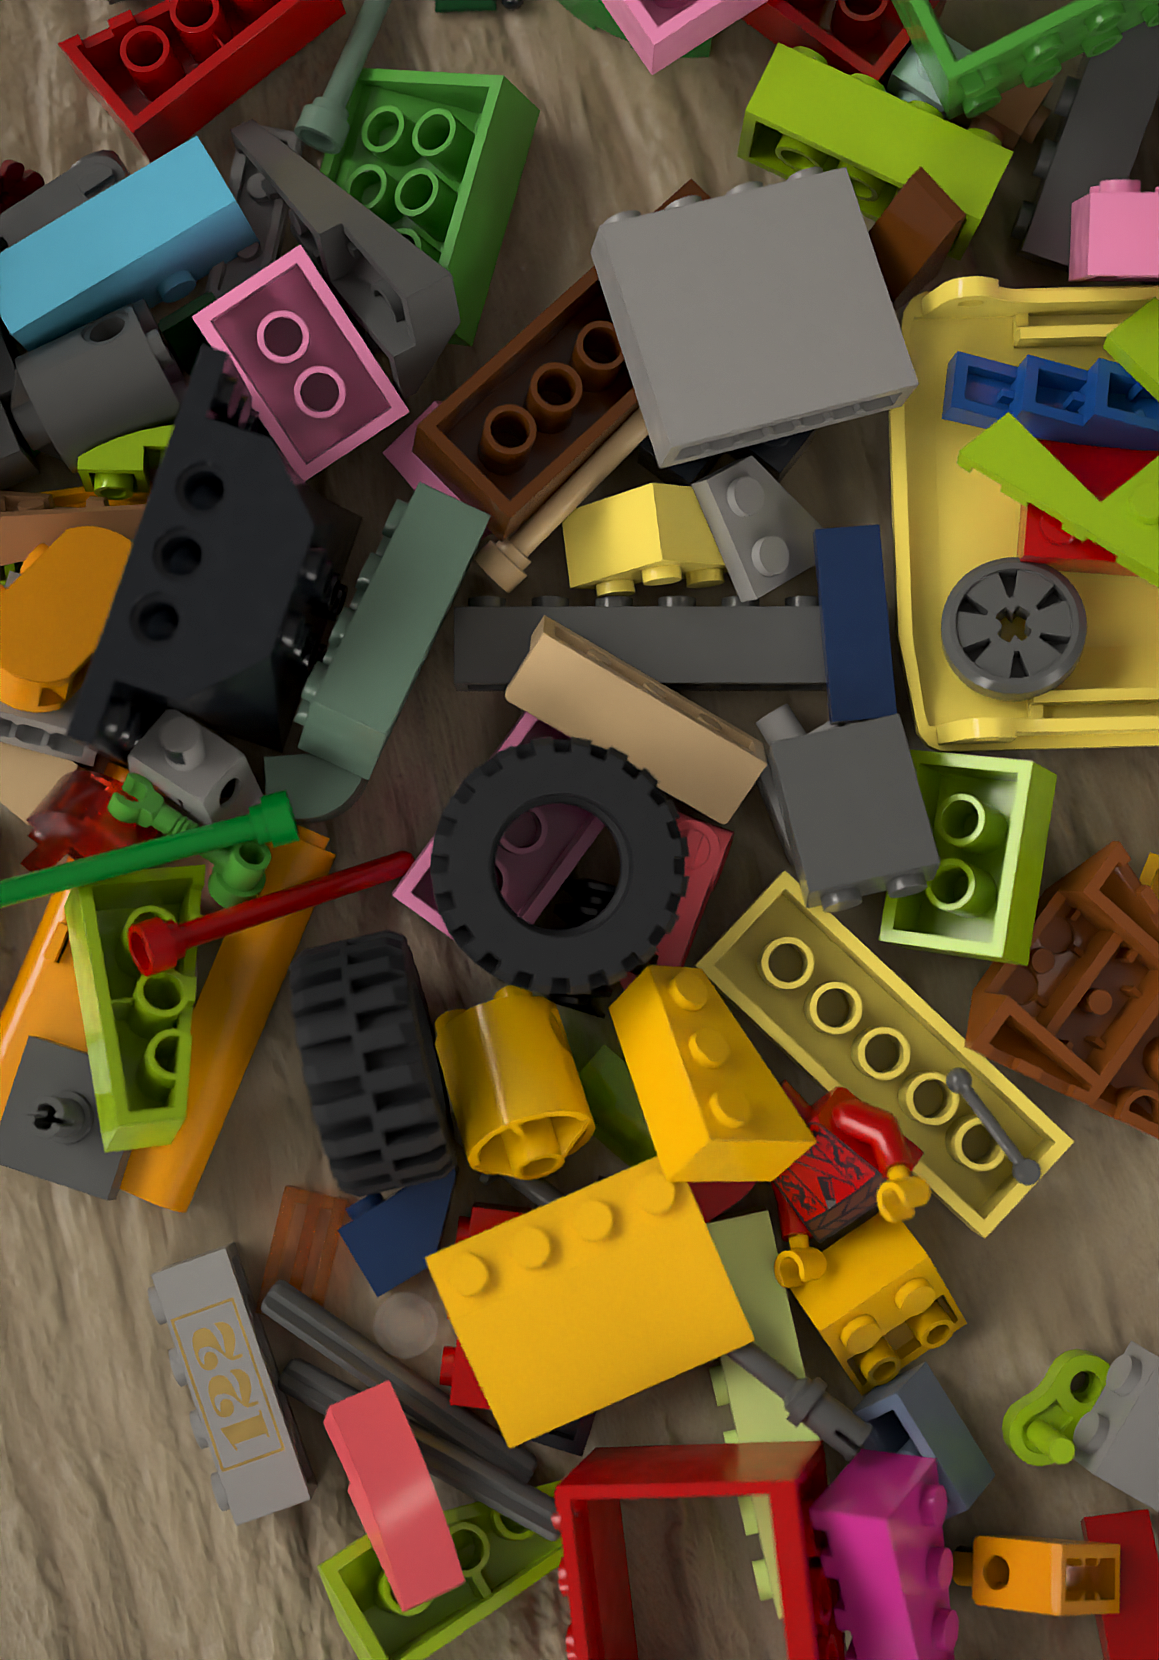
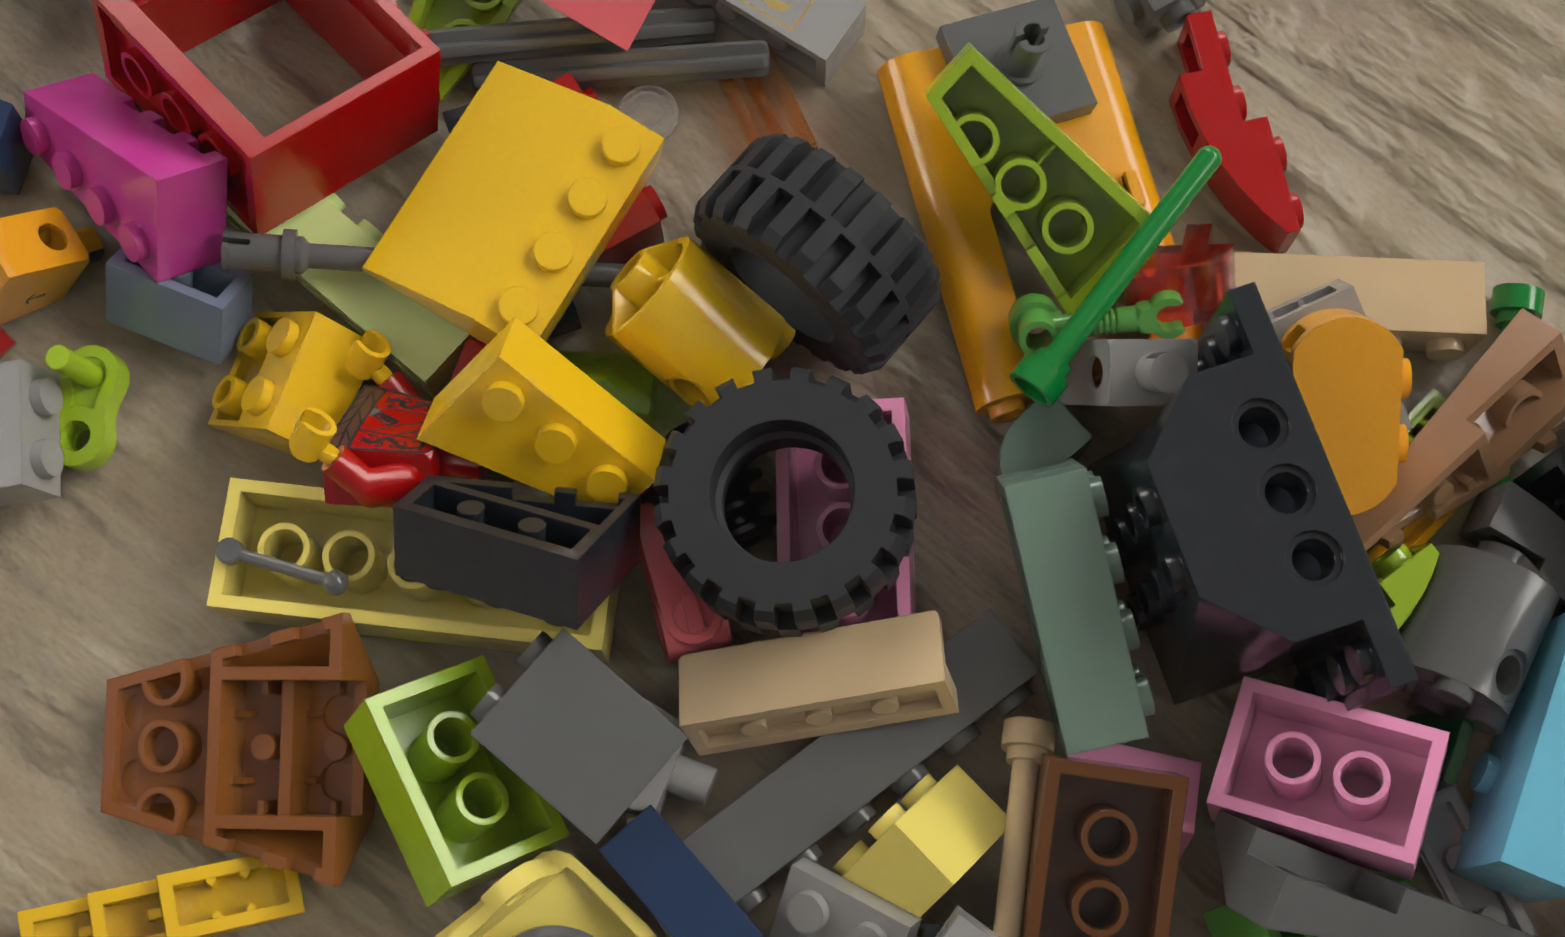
camera: 145 degrees right, 10 degrees down
(160, 943) = (1049, 217): red piece -> none
(398, 1232) = (695, 159): dark blue slope -> none
(800, 987) = (516, 550): none -> black wedge

